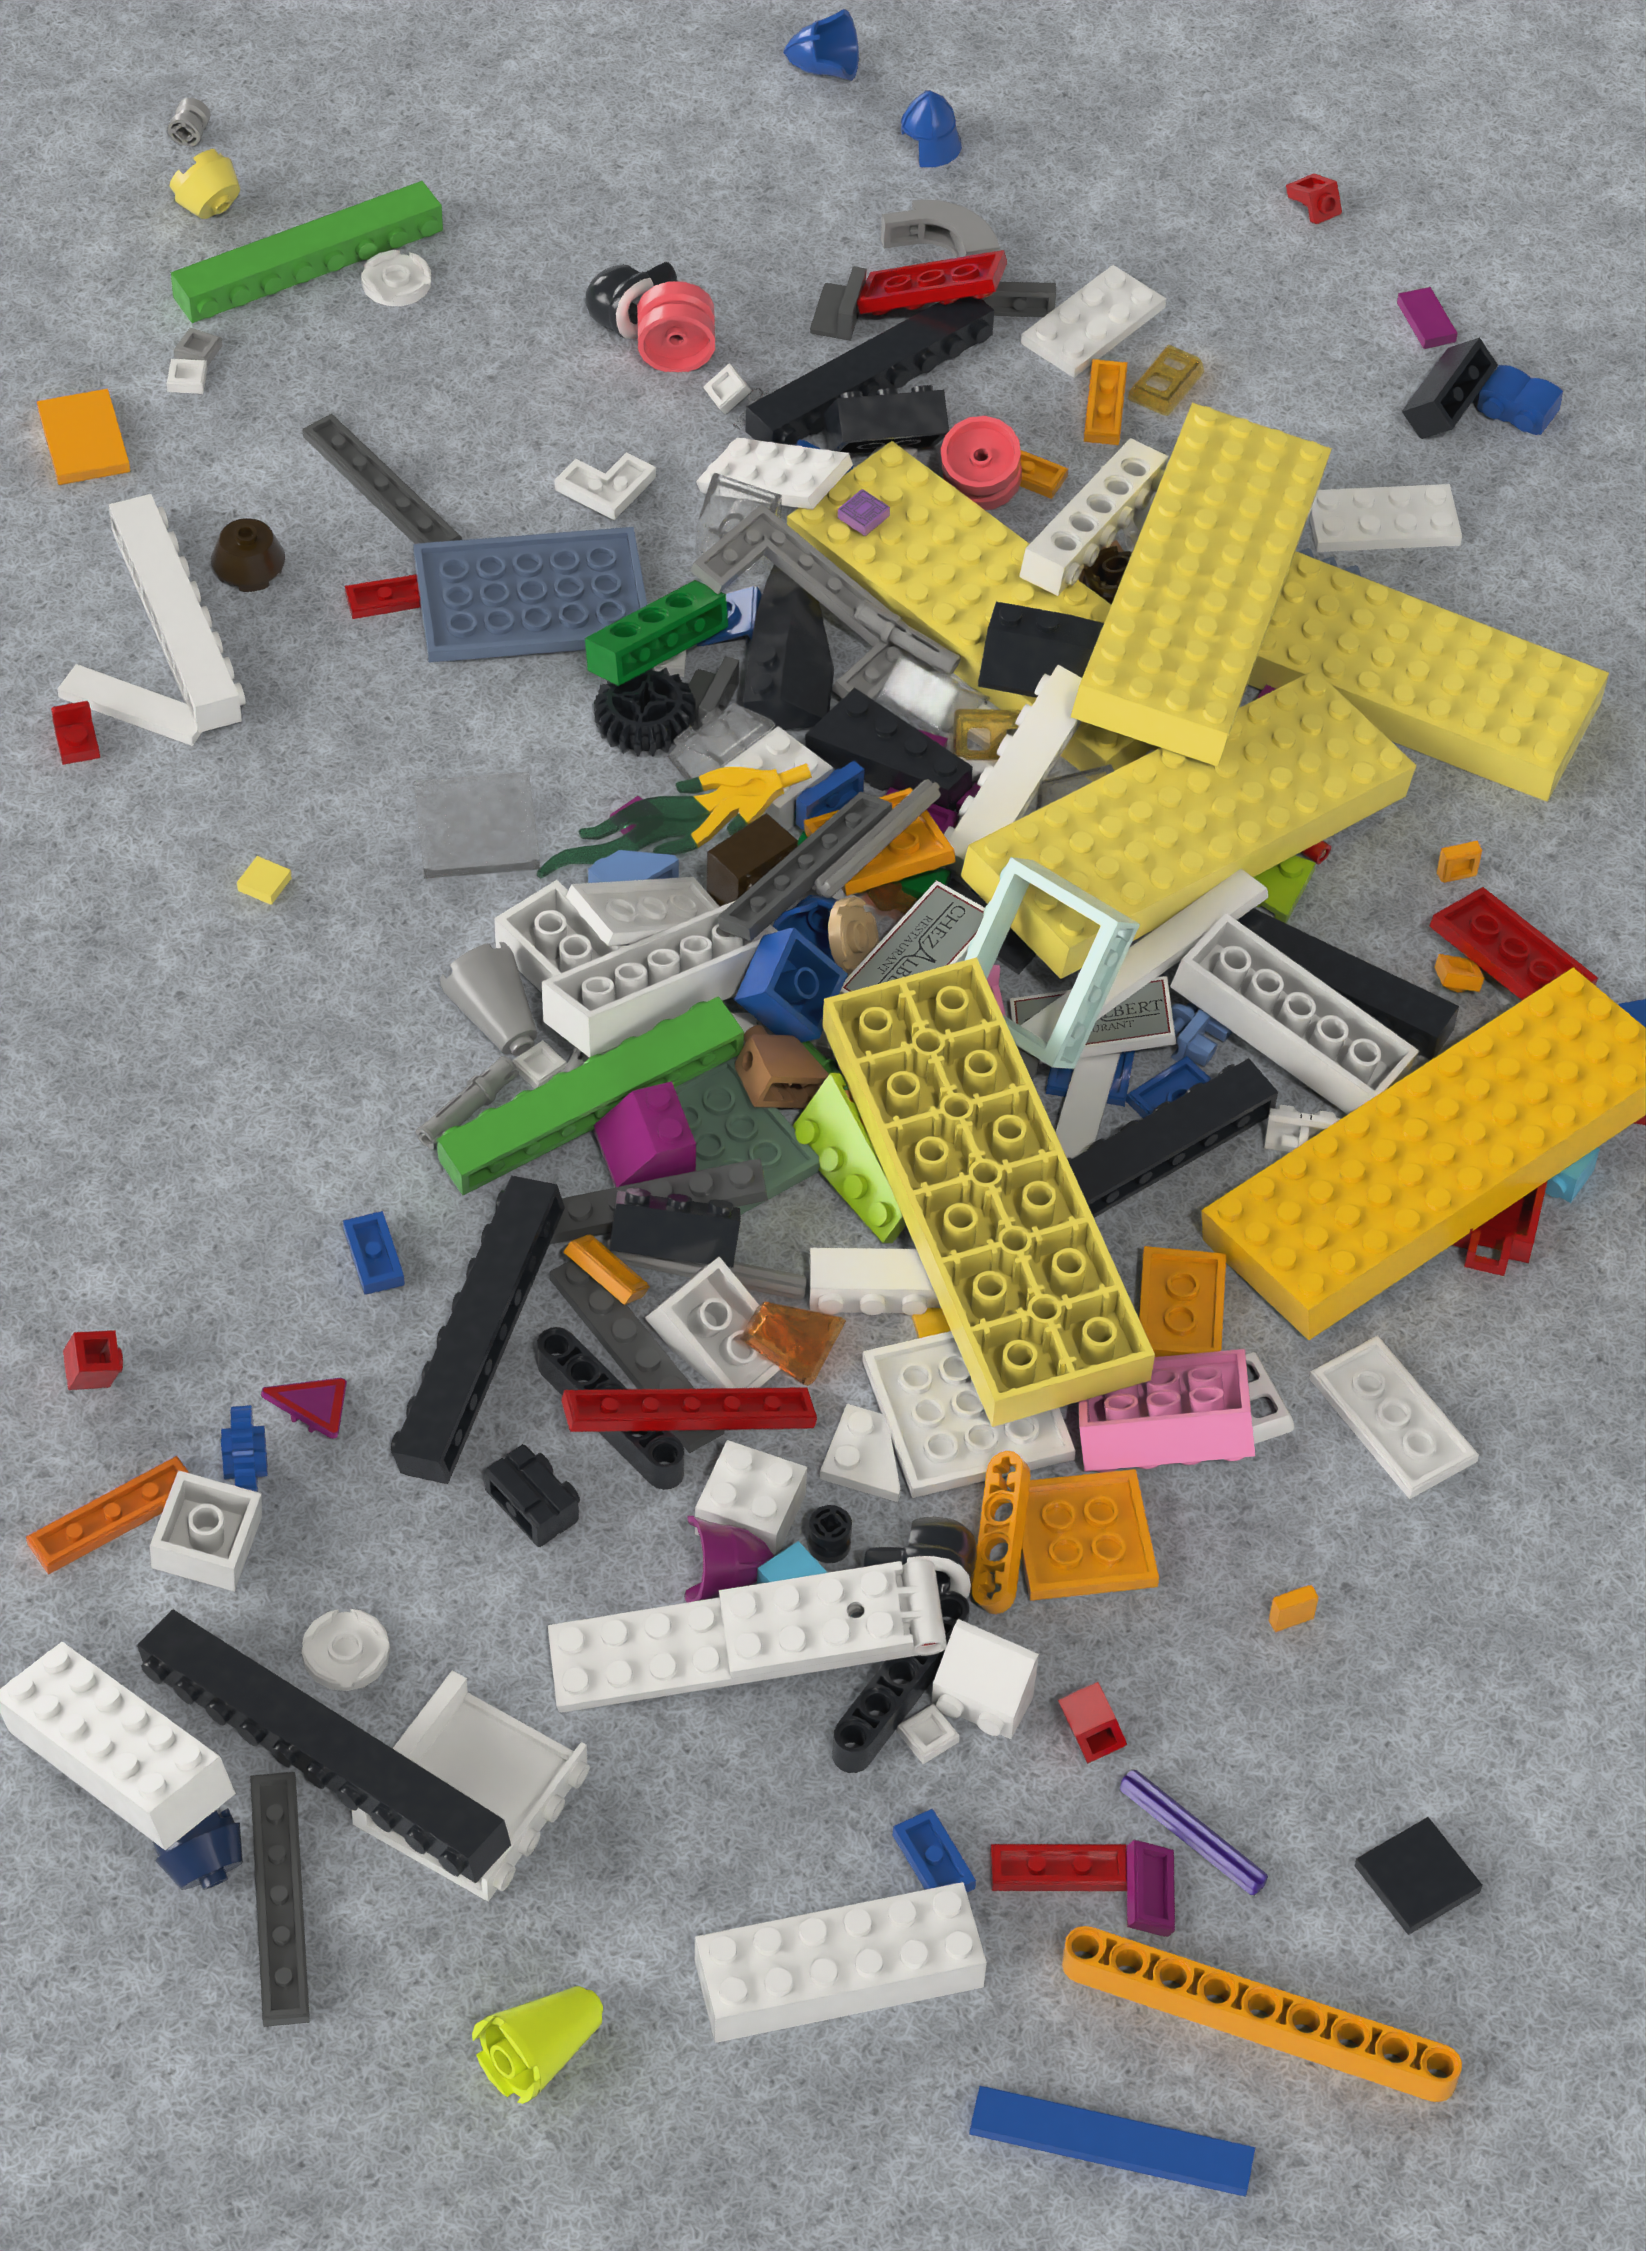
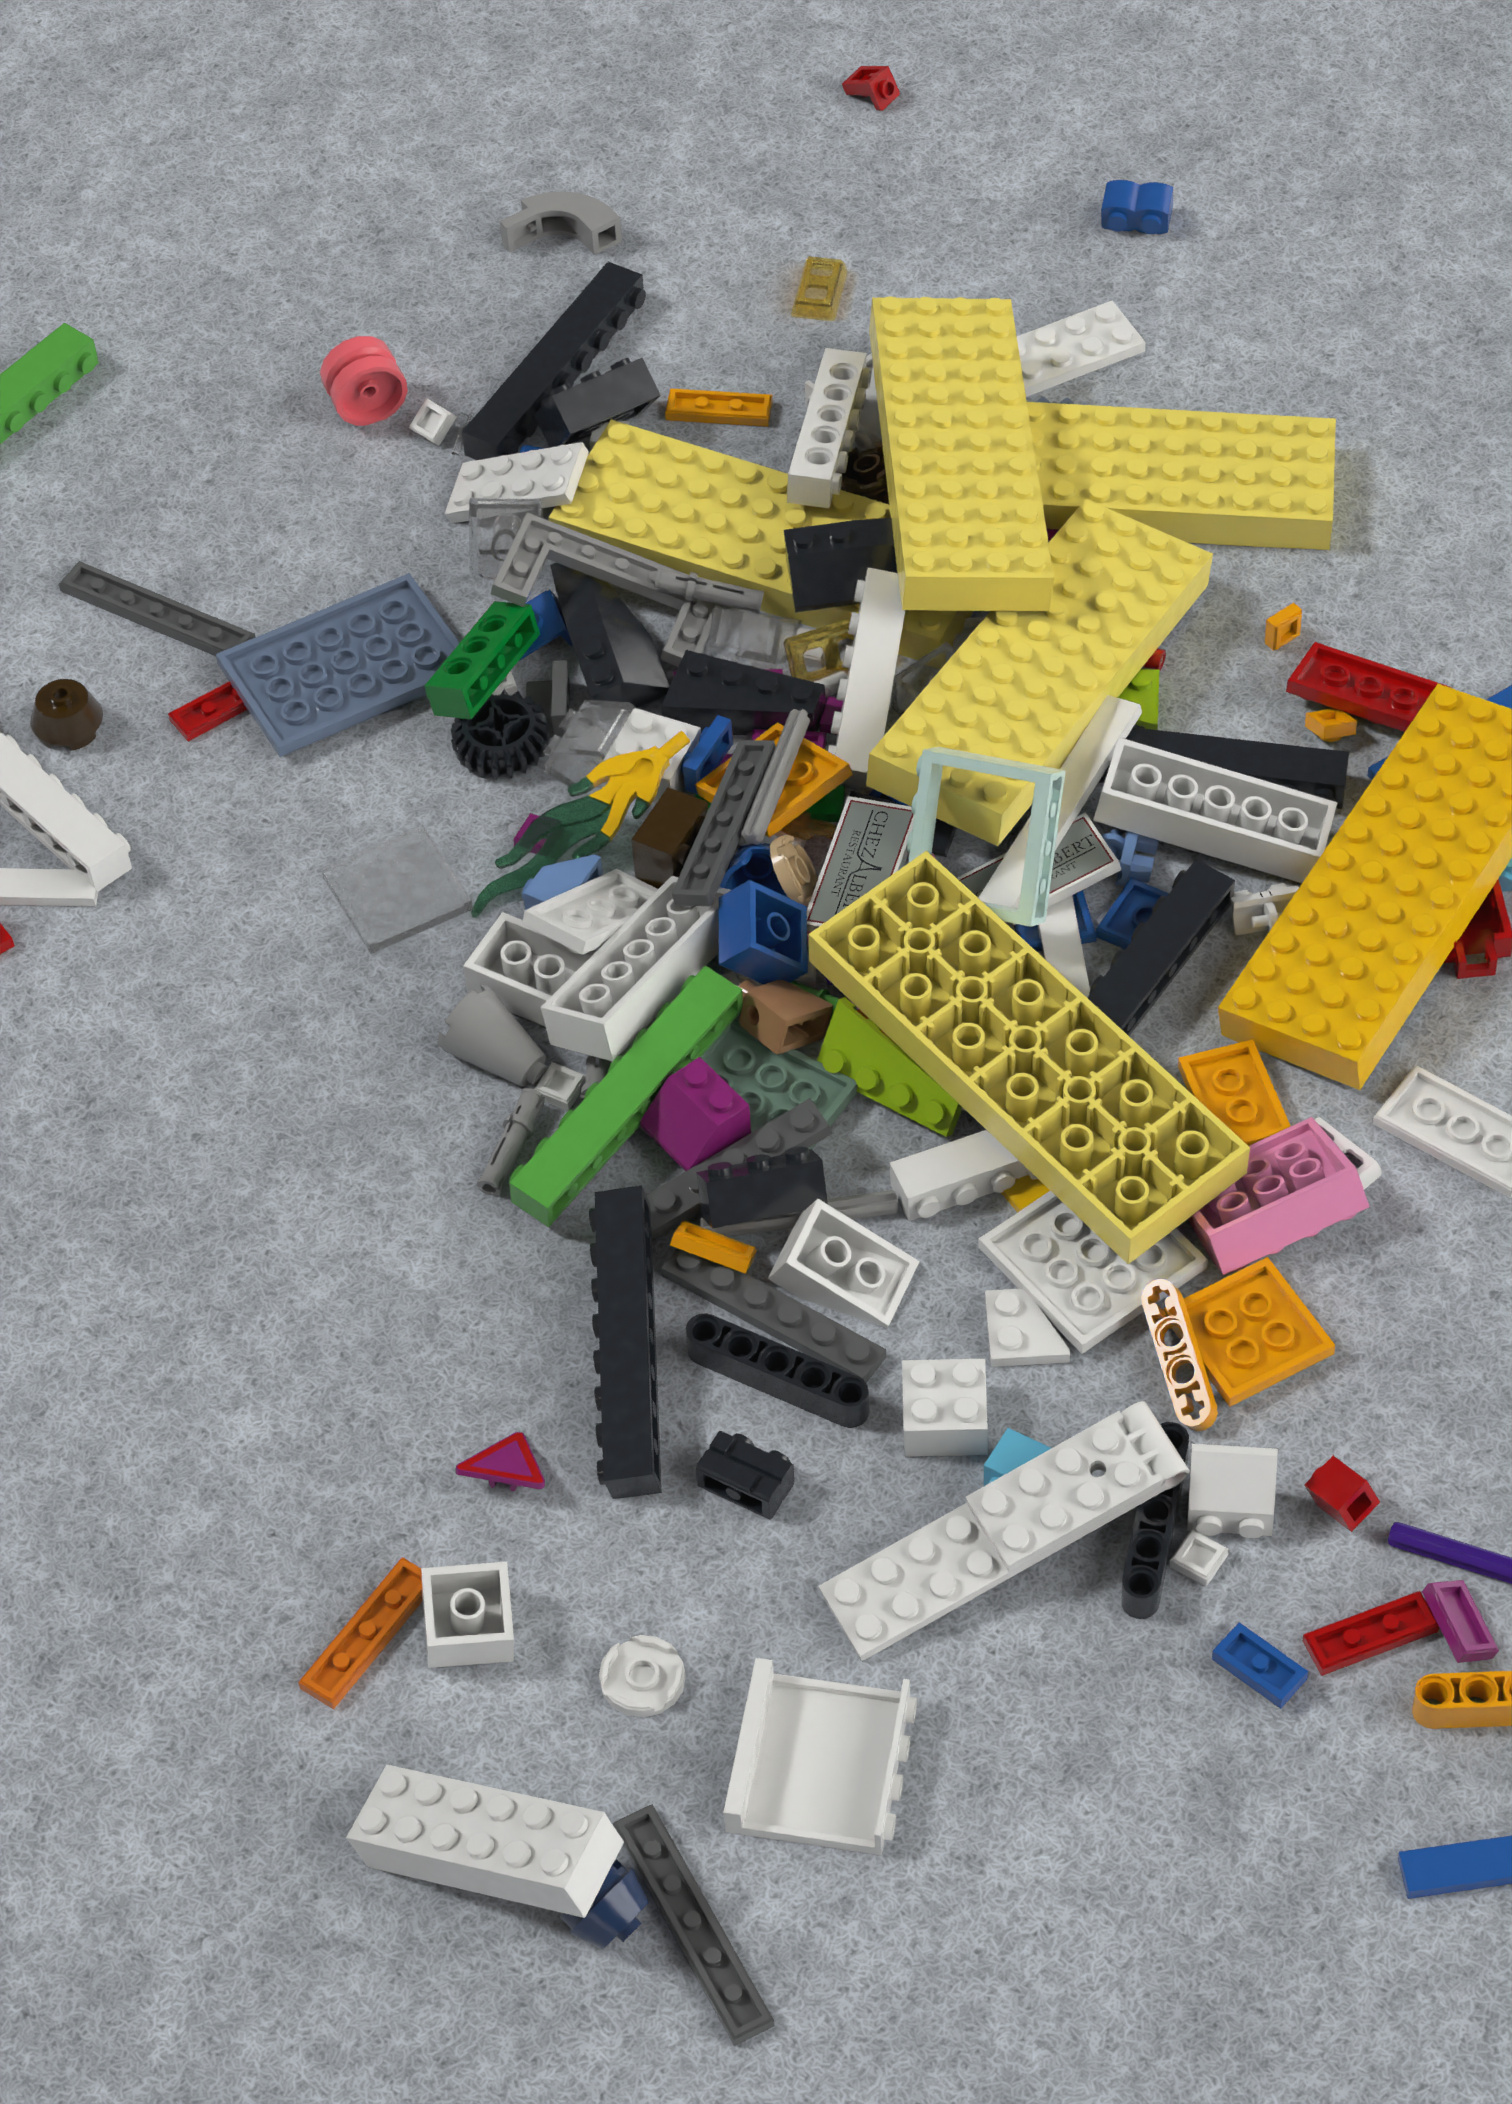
camera: 15 degrees left, 0 degrees up
(92, 1360) = (284, 1497): red brick -> none
(244, 1449) = (468, 1527): blue gear -> none
(264, 880) = (224, 1005): light yellow tile -> none
(324, 1747) = (675, 1769): black brick -> none
(373, 1252) = (493, 1307): blue plate -> none
(404, 285) = (77, 419): white tile -> none
(536, 2040) = (992, 1963): neon yellow cone -> none
(609, 491) = (365, 550): white plate -> none
(614, 289) = (291, 368): black piece -> none
(688, 1409) = (851, 1346): red tile -> none
(728, 1558) = (956, 1466): magenta helmet -> none
(793, 1338) = (911, 1249): clear orange wing -> none
(826, 47) = (373, 89): blue helmet -> none
(829, 1534) = (1028, 1410): black wheel -> none
(838, 307) = (497, 317): dark grey panel -> none
(839, 1962) = (1224, 1789): white brick -> none
(863, 512) = (619, 490): medium lavender tile -> none
(932, 282) = (575, 267): red plate -> none
(933, 124) = (504, 126): blue helmet -> none
(940, 1541) = (1127, 1384): black piece -> none
(982, 460) = (698, 409): coral wheel -> none
(1023, 299) = (657, 257): dark grey panel -> none
(1093, 321) = (729, 257): white plate -> none
(1105, 402) = (775, 325): light orange tile -> none
(1293, 1608) = (1462, 1329): light orange tile -> none
(1427, 317) = (1020, 161): magenta tile -> none
(1450, 388) = (1074, 216): black brick -> none

